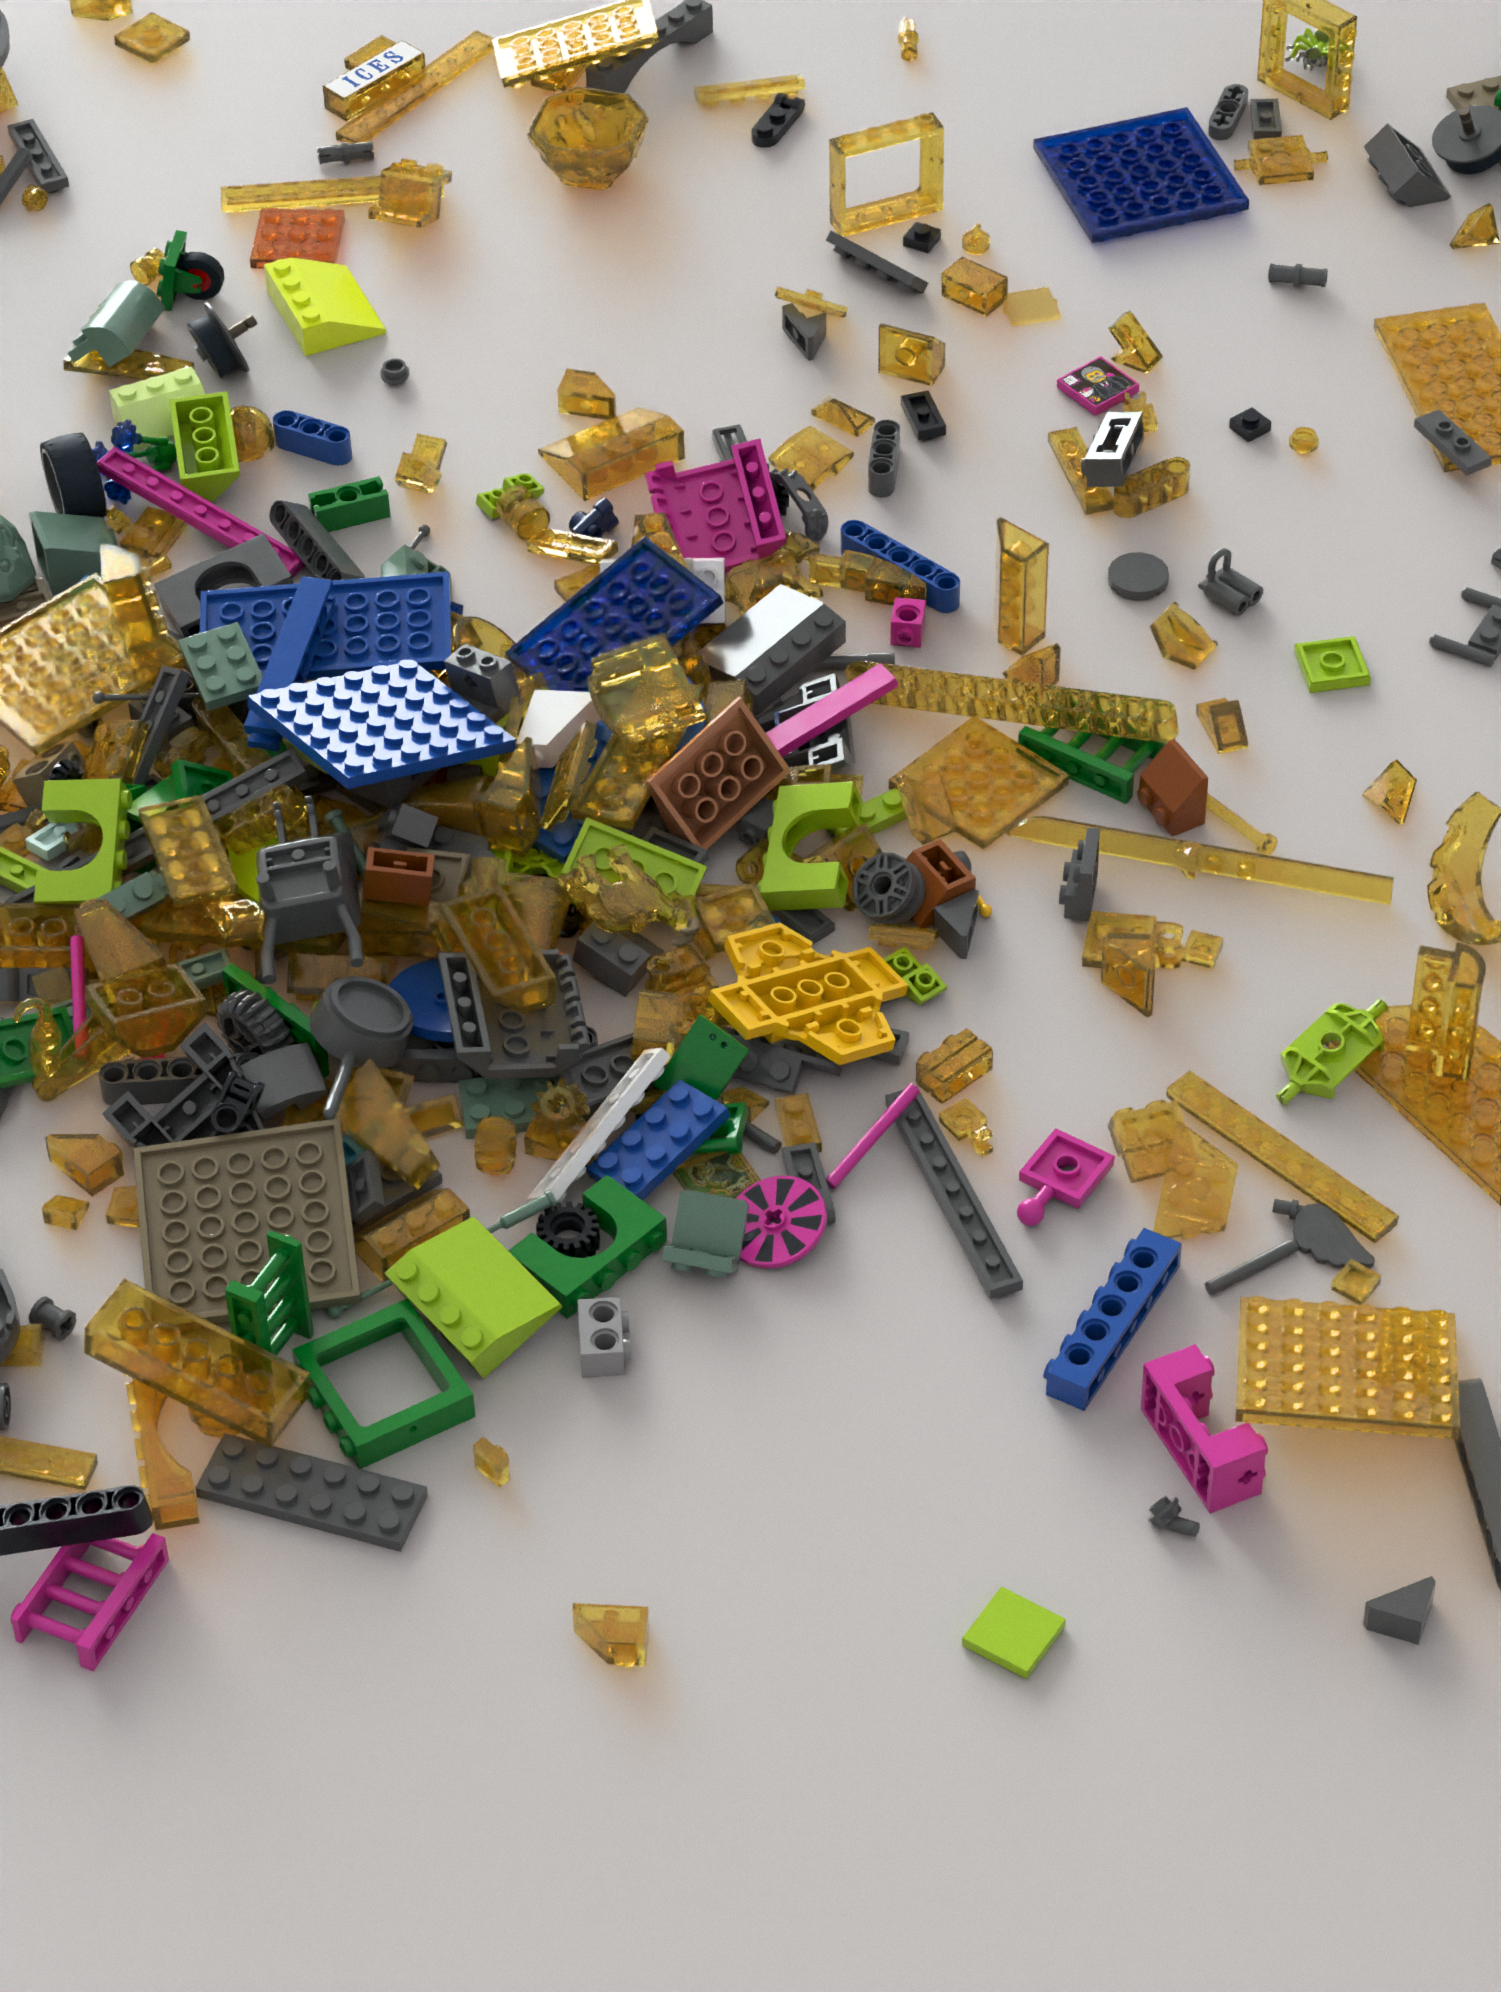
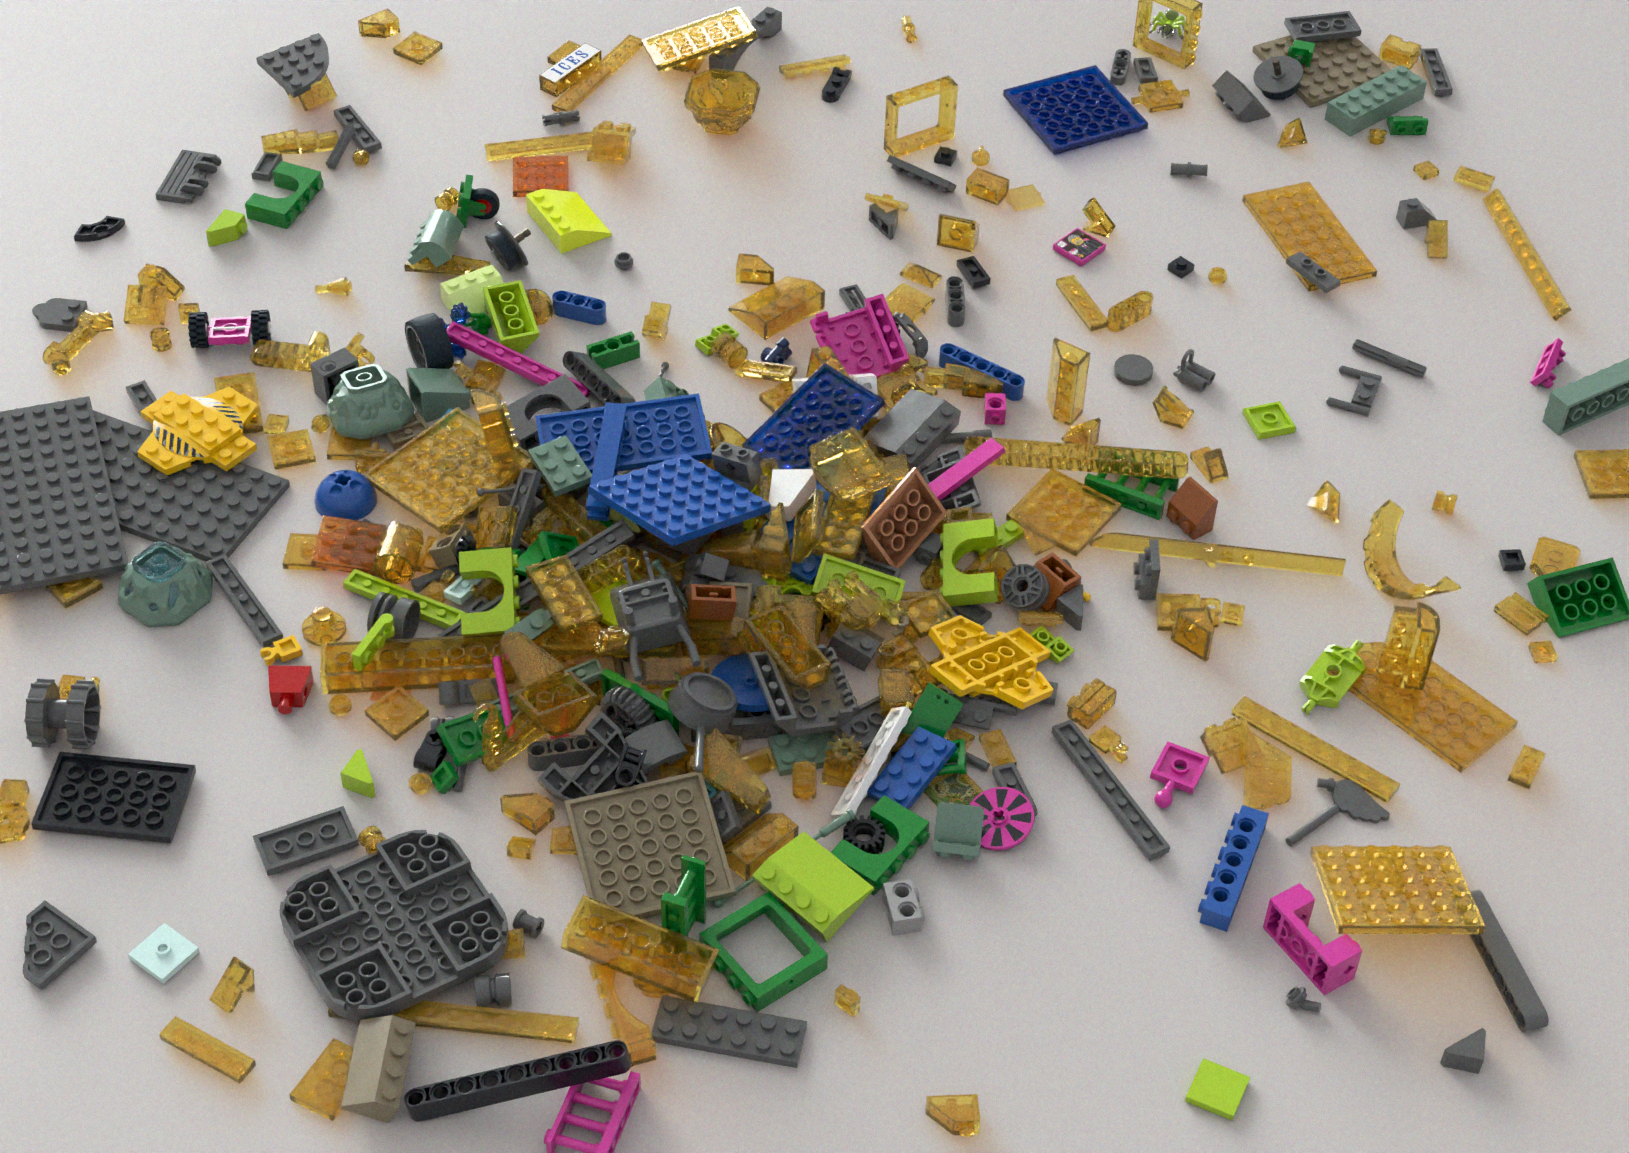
camera: 10 degrees left, 0 degrees up
(872, 1136) = (1050, 754): dark pink bar -> none
(1104, 466) = (1100, 299): dark grey brick -> none
(1139, 405) = (1110, 265): clear yellow plate -> none
(1264, 843) = (1255, 541): clear yellow bar -> none
(1356, 1282) = (1382, 830): clear yellow plate -> none

